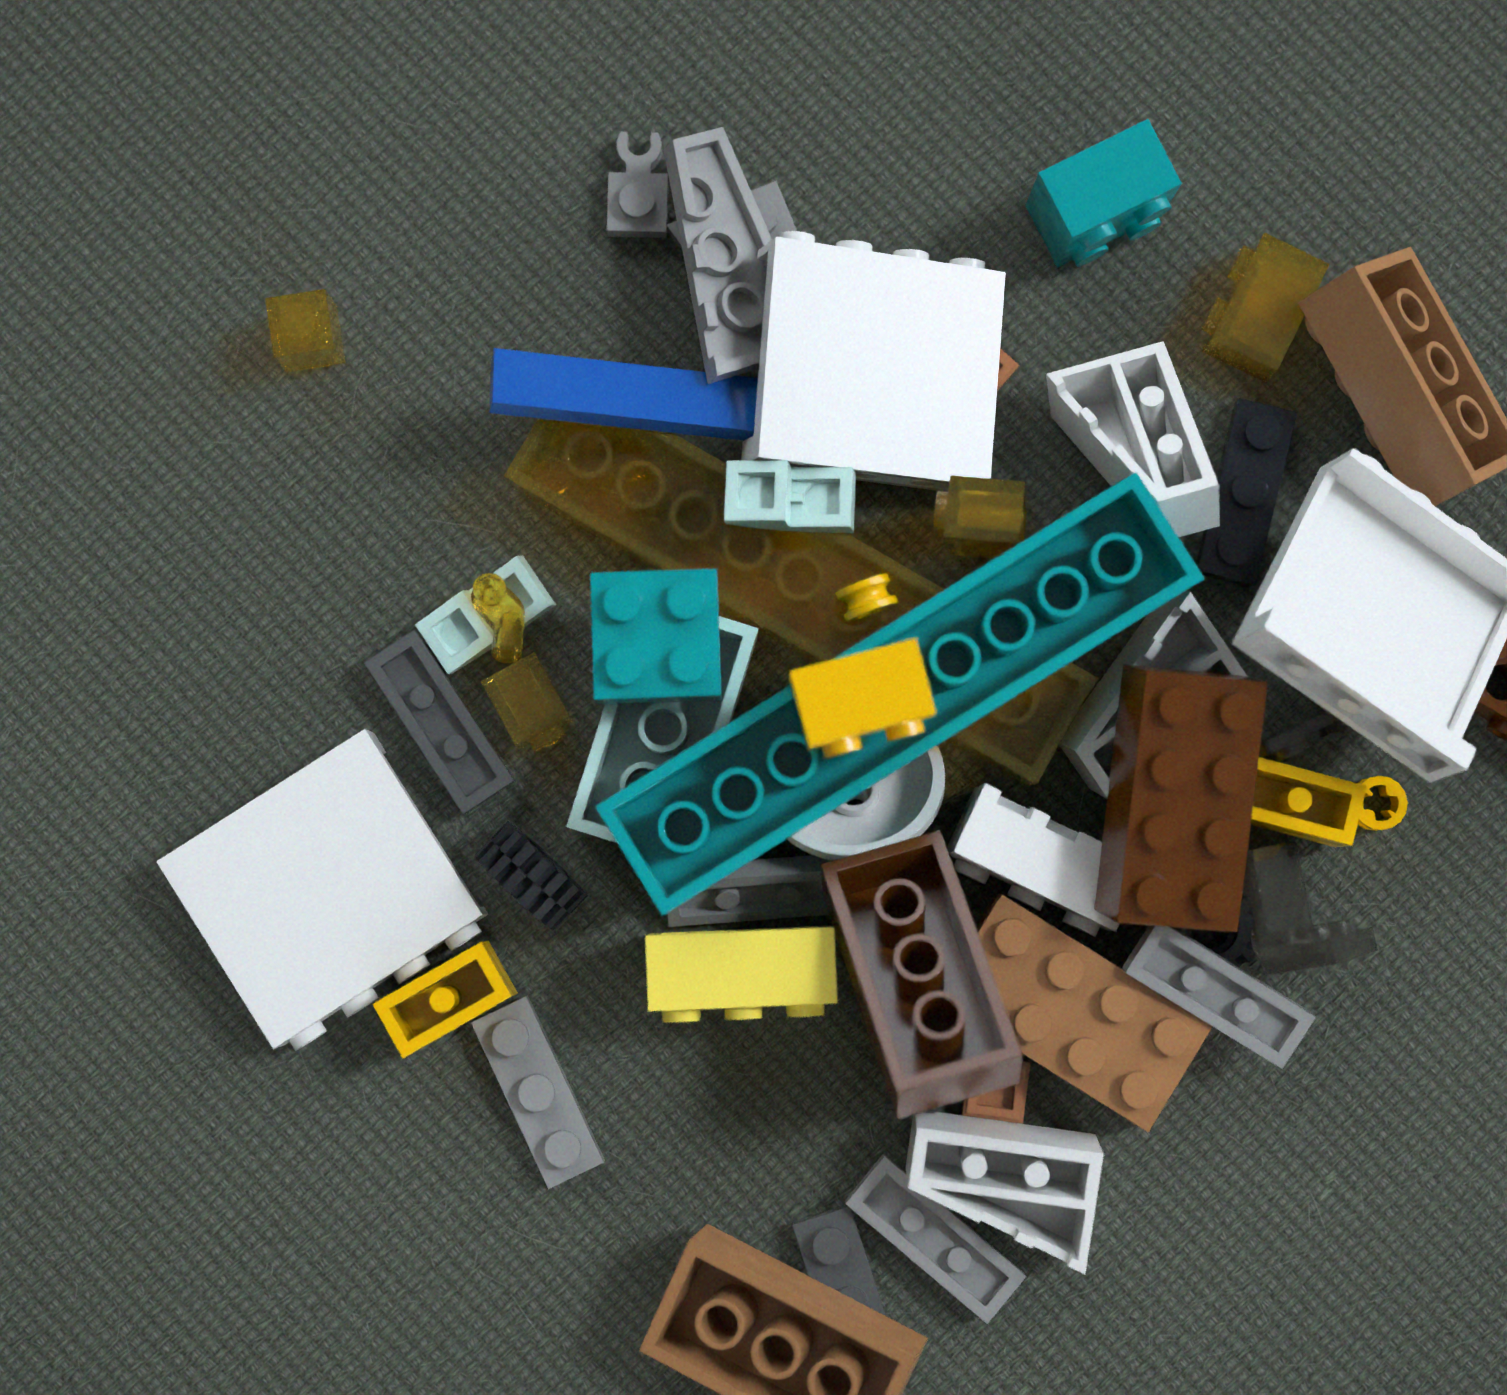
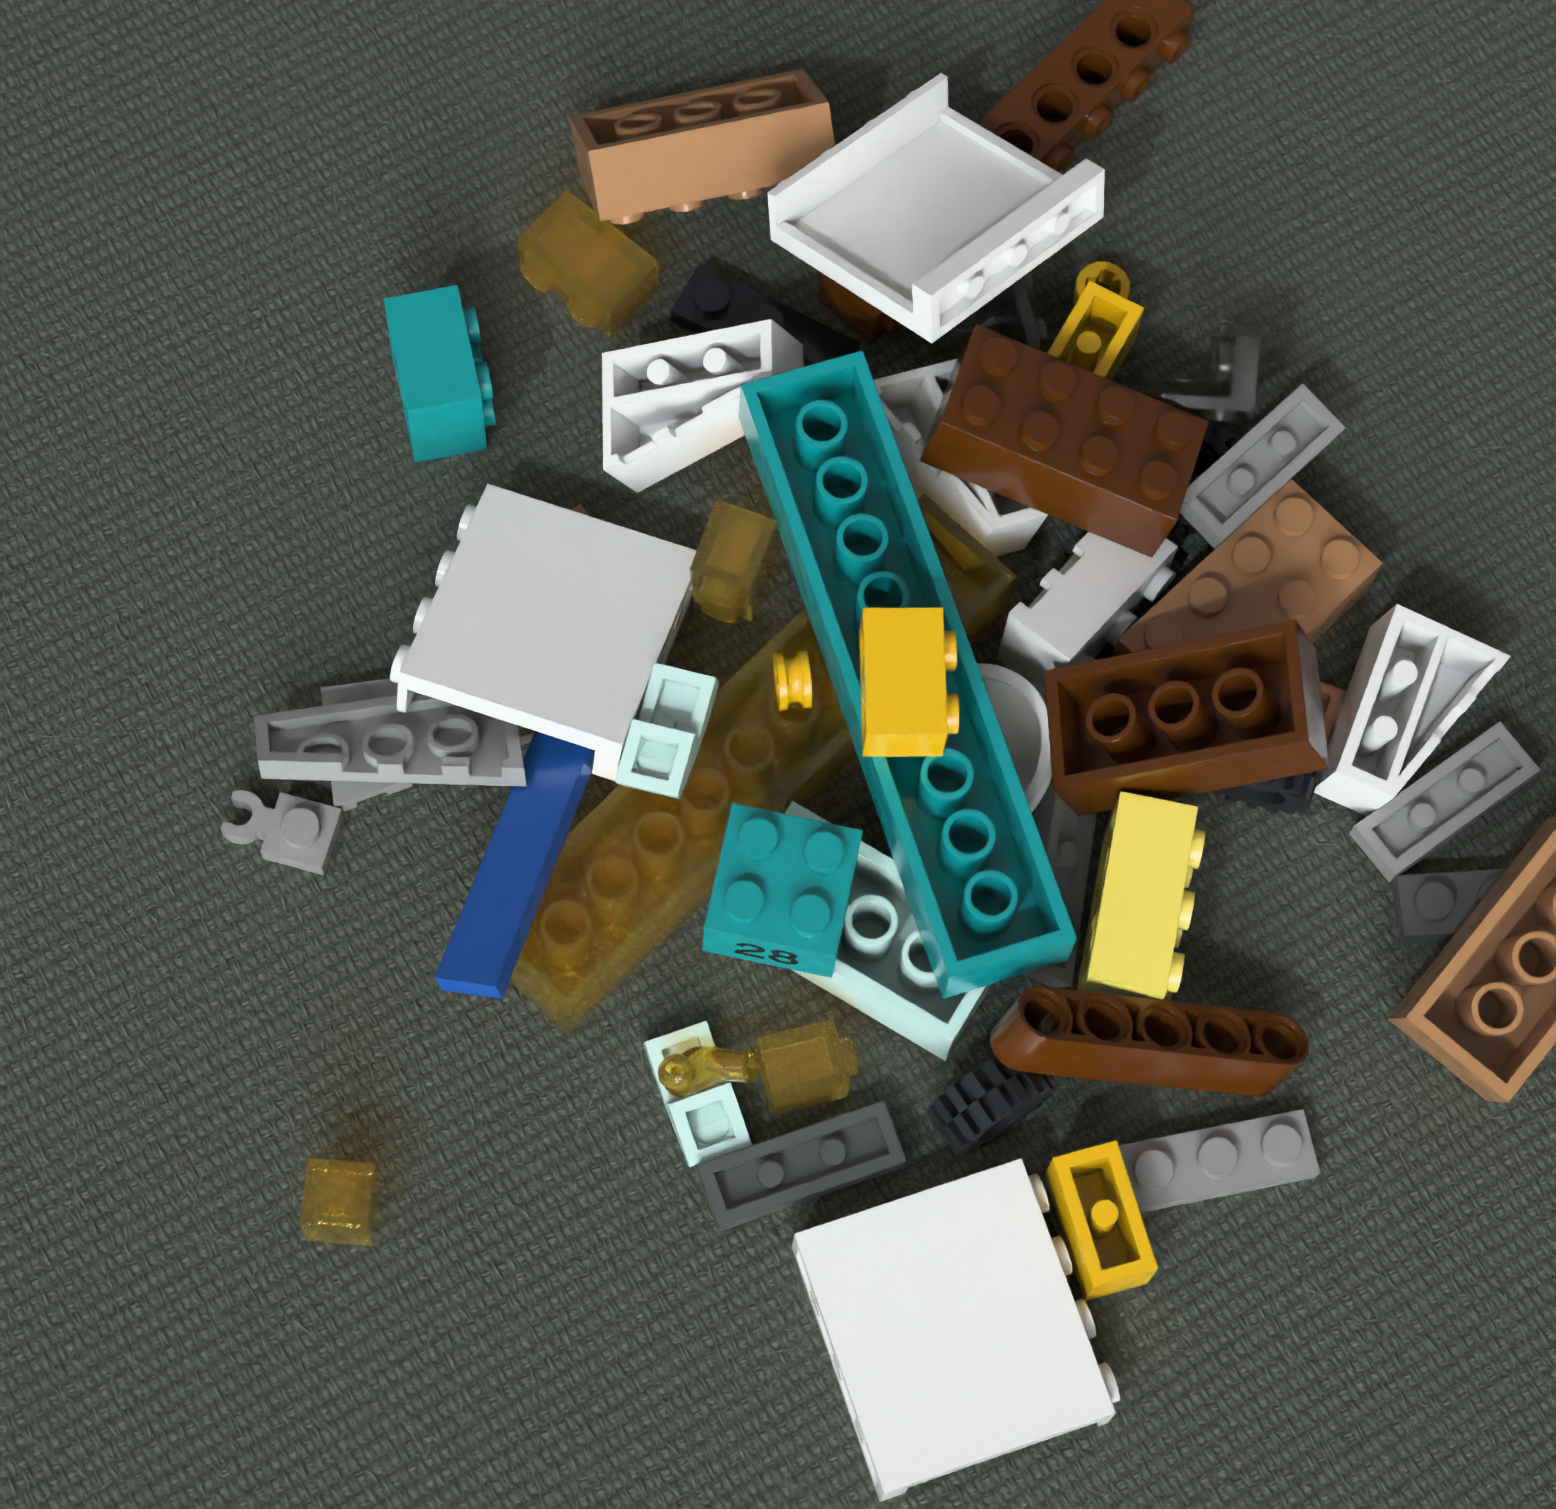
camera: 80 degrees left, 15 degrees down
(596, 985) = (1148, 1041): none -> reddish brown beam

